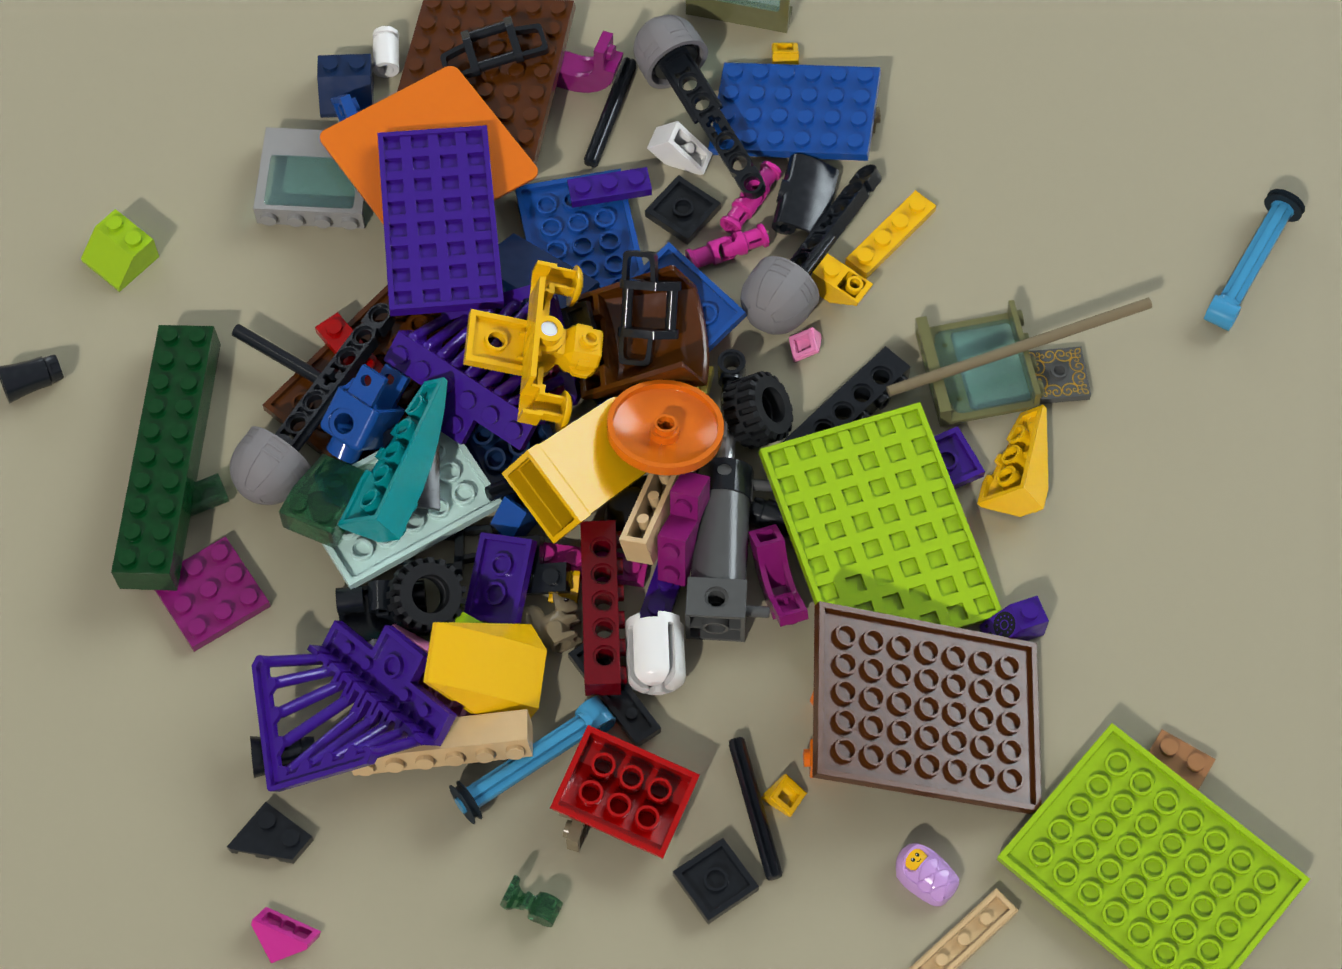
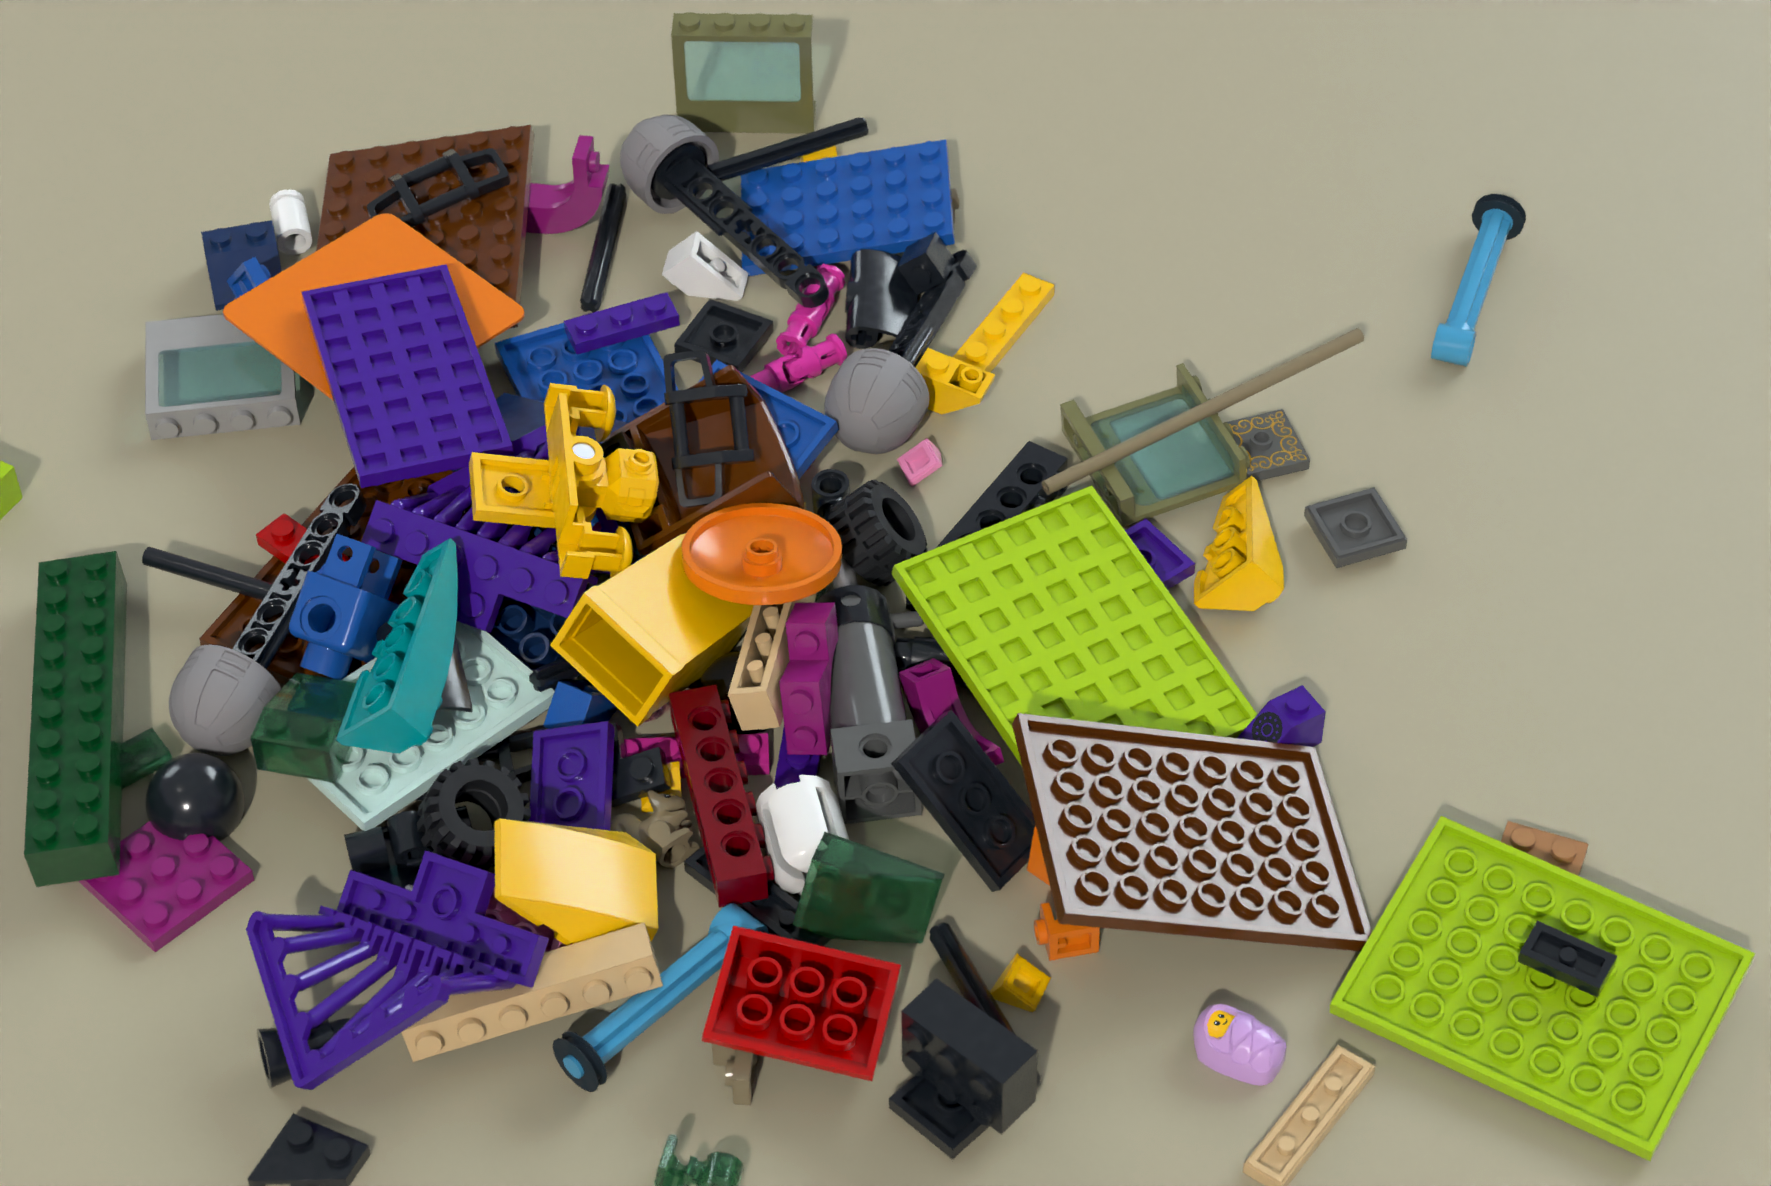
camera: 10 degrees left, 15 degrees down
(239, 537) = (195, 797): none -> black piece
(686, 711) = (866, 894): none -> clear green slope
(730, 859) = (968, 1056): none -> black brick
(761, 53) = (789, 149): none -> black axle
(774, 648) = (969, 799): none -> black plate
(843, 174) = (926, 263): none -> black brick
(1110, 459) = (1355, 527): none -> dark grey plate
(1173, 859) = (1567, 959): none -> black plate

